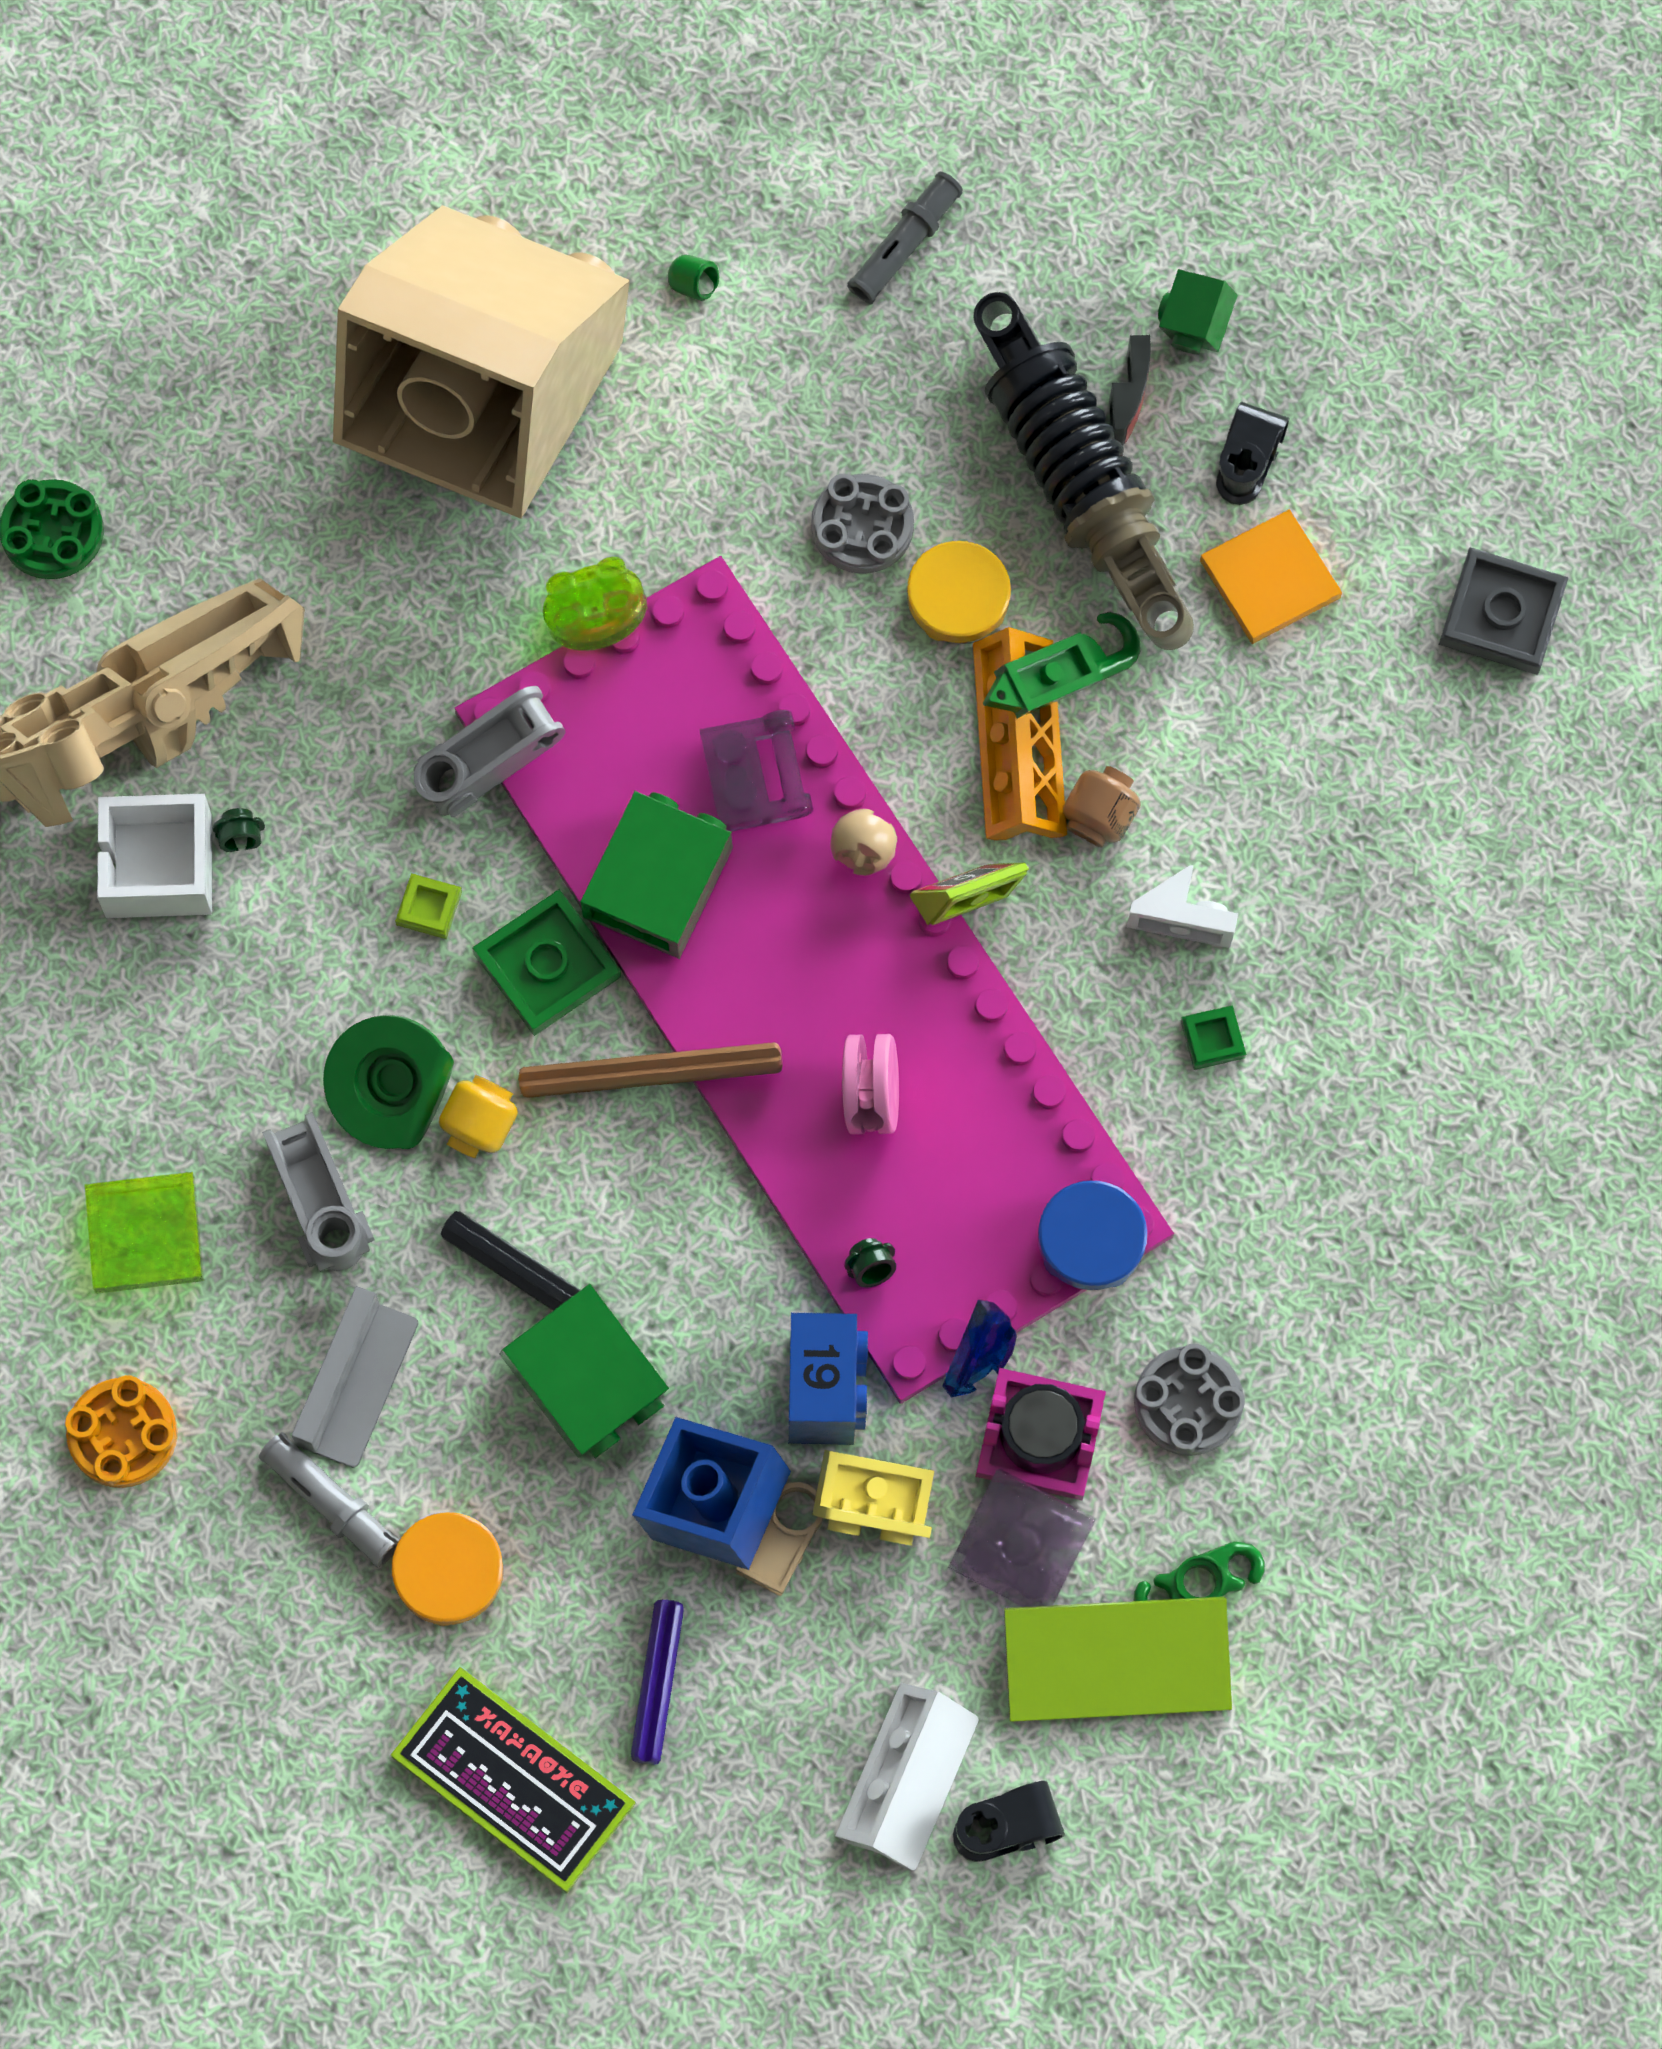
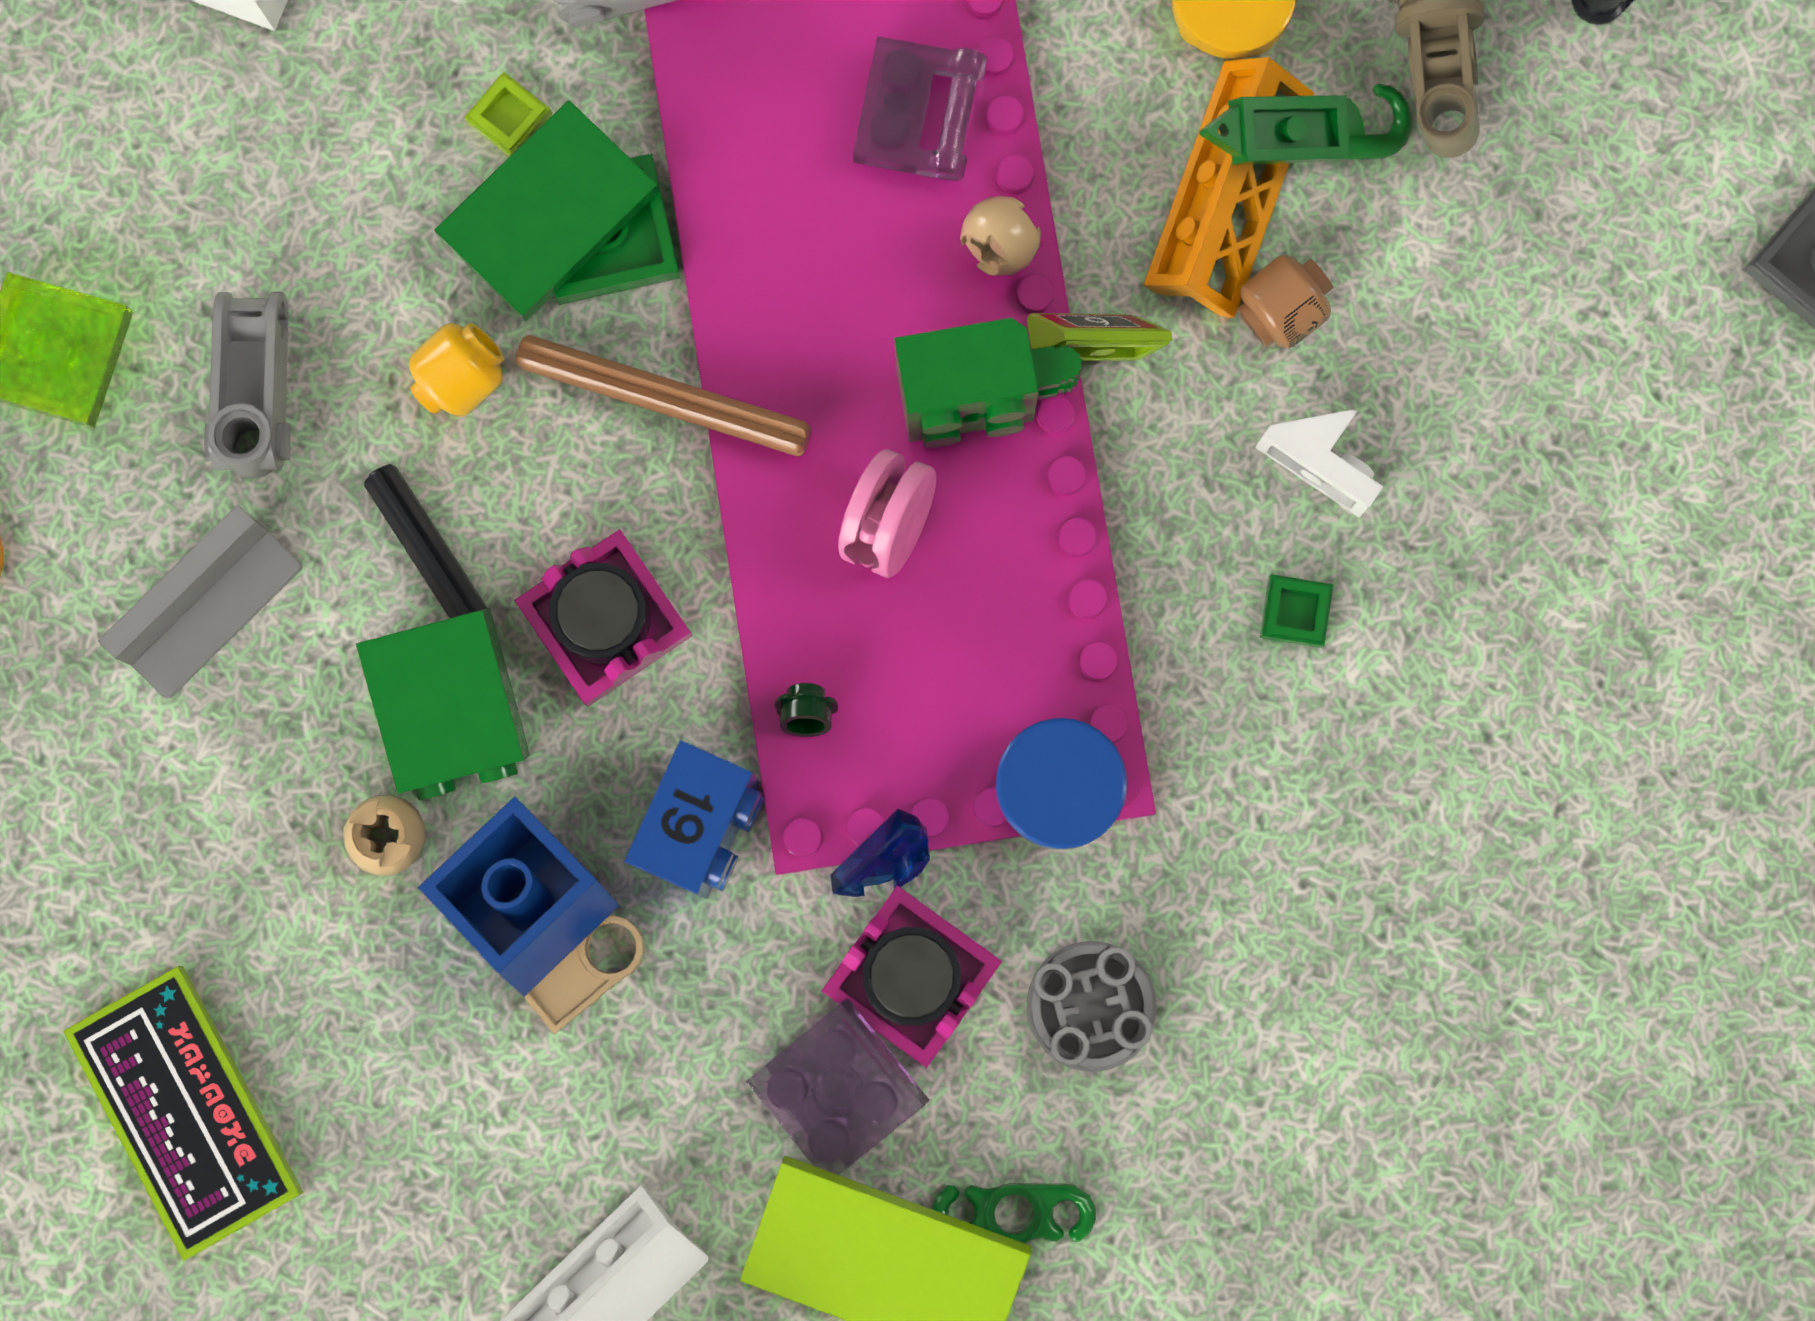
camera: 25 degrees right, 10 degrees up
(346, 1514) = (128, 746): light grey pin -> none
(386, 1080) = (374, 291): green hat -> none
(447, 1568) = (210, 853): light orange tile -> none
(498, 964) = (547, 210): none -> green tile
(567, 1512) = (372, 814): none -> tan piece
(657, 873) = (761, 177): green brick -> none
(657, 1682) = (381, 1072): dark purple axle -> none
(678, 1260) = (602, 617): none -> piece
(873, 1494) = (695, 974): light yellow bracket -> none
(894, 957) = (977, 380): none -> green hinge
(1270, 576) = (1588, 117): light orange tile -> none

